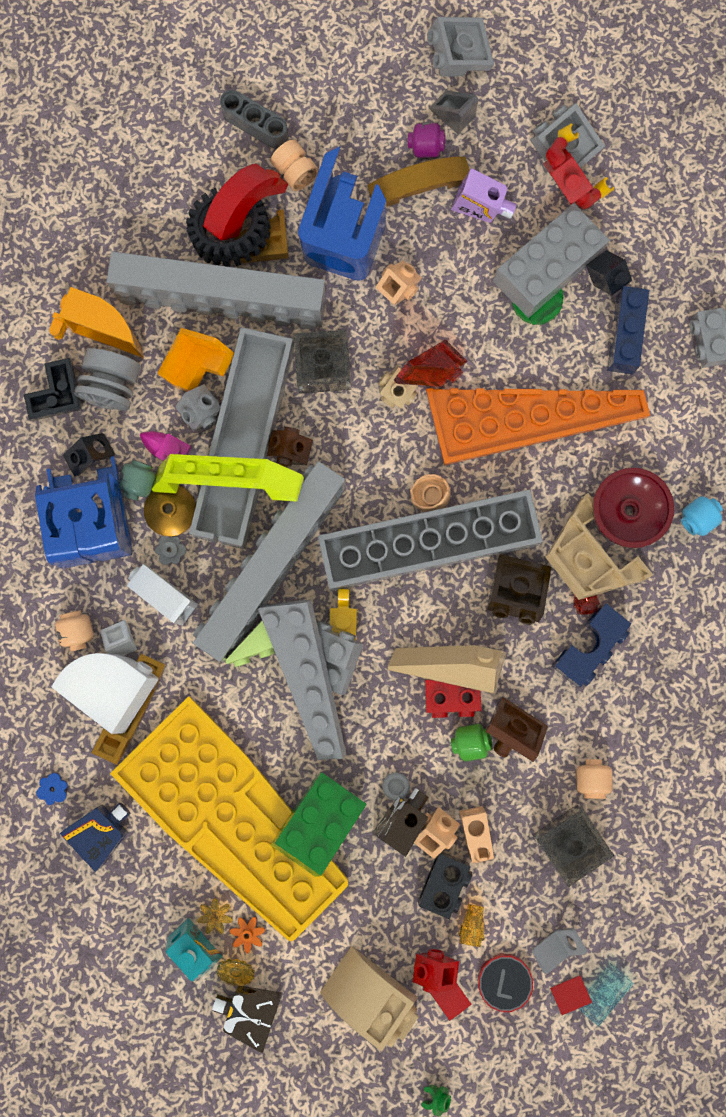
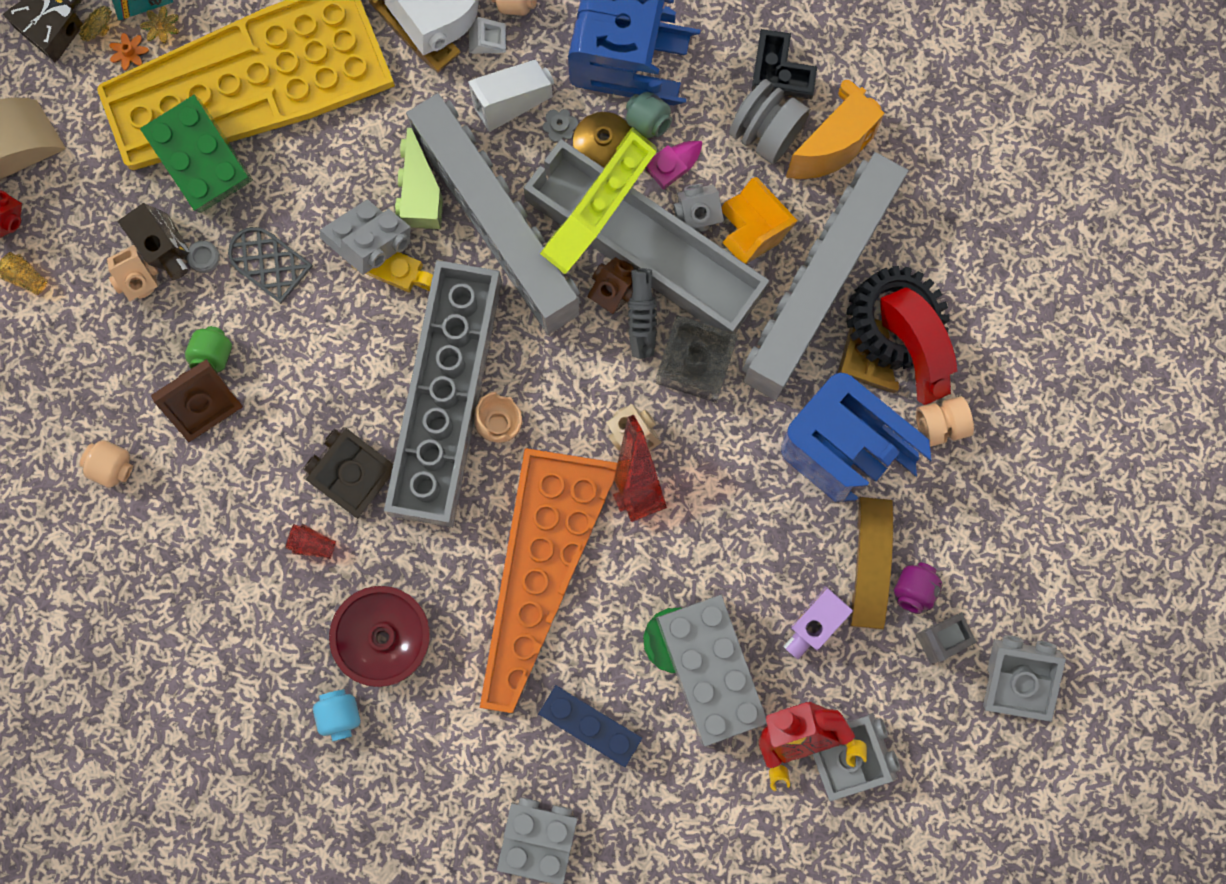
camera: 110 degrees right, 5 degrees down
(83, 453) = (698, 71): black bracket -> none
(249, 109) = (1029, 389): dark grey beam -> none
(301, 657) = (378, 202): light grey wing -> none
(304, 415) = (642, 315): none -> dark grey hinge
(376, 740) = (294, 283): none -> dark grey window
(399, 282) = (755, 481): light nougat brick -> none
(437, 882) = (81, 258): black brick -> none
(446, 698) = (267, 350): red brick -> none
(457, 665) = (295, 367): tan wedge -> none
(477, 834) = (112, 316): light nougat leg -> none
(573, 845) = (48, 408): clear smoke brick -> none
(585, 563) = (343, 552): tan wing -> none
(608, 629) = (235, 501): dark blue arch -> none
(609, 272) = (668, 733): black brick -> none

